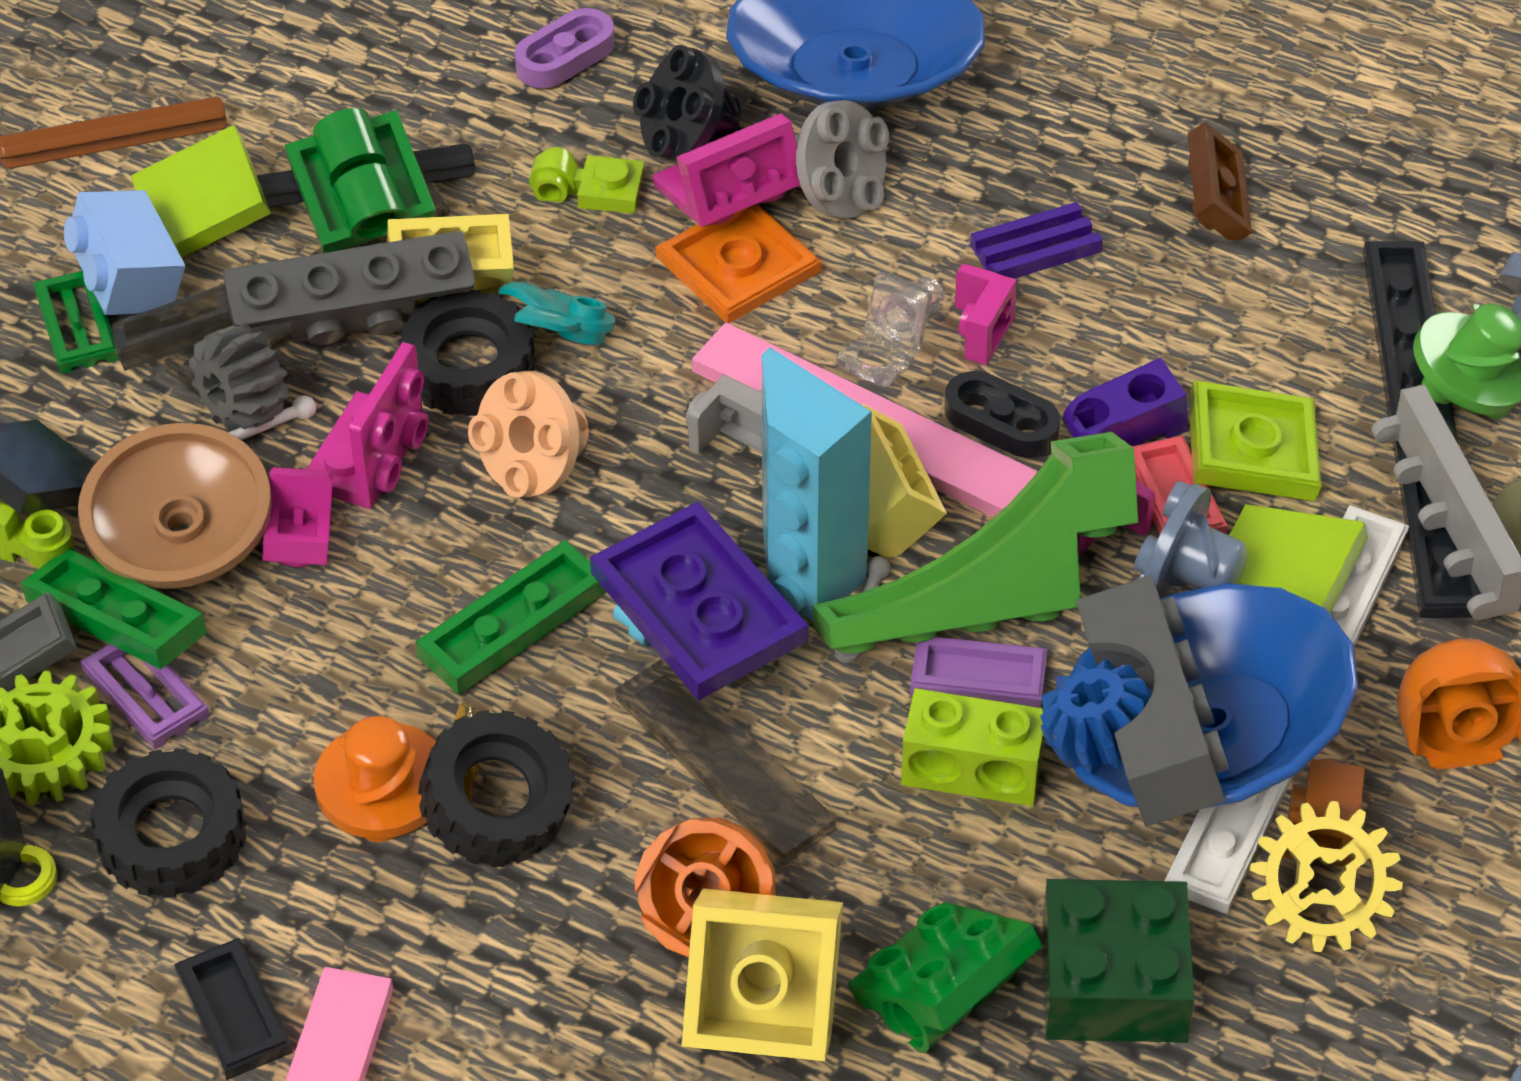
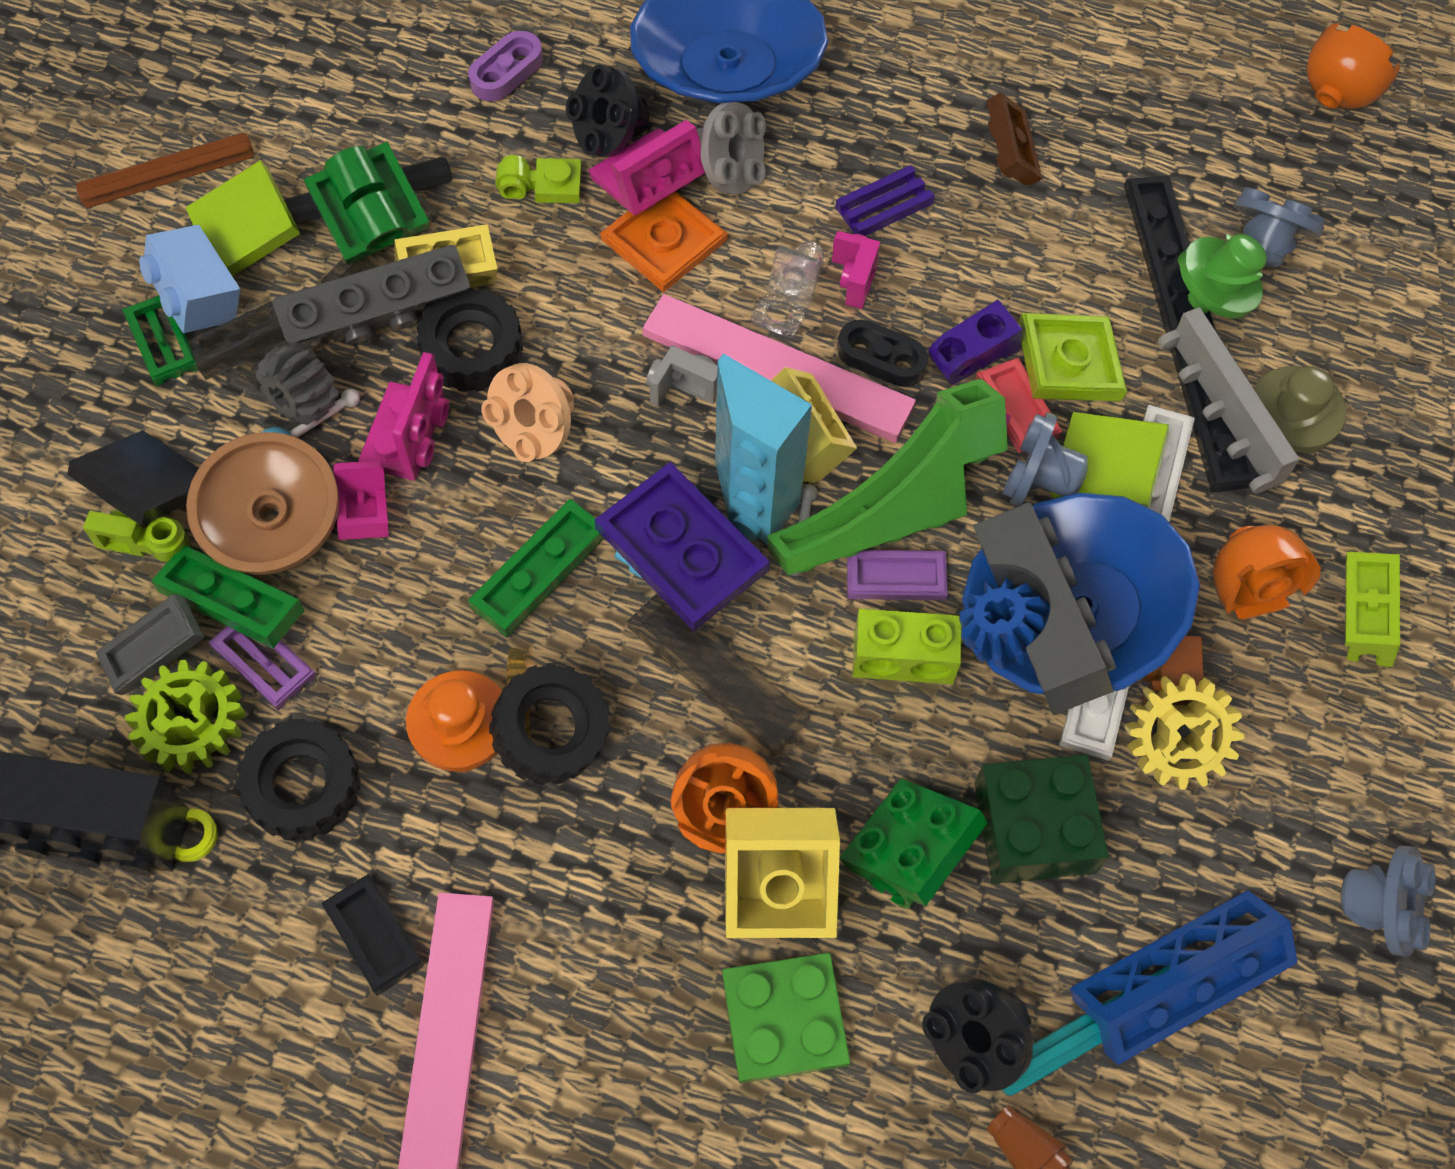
camera: 10 degrees left, 15 degrees up
(574, 317) = (537, 298): teal plate -> none

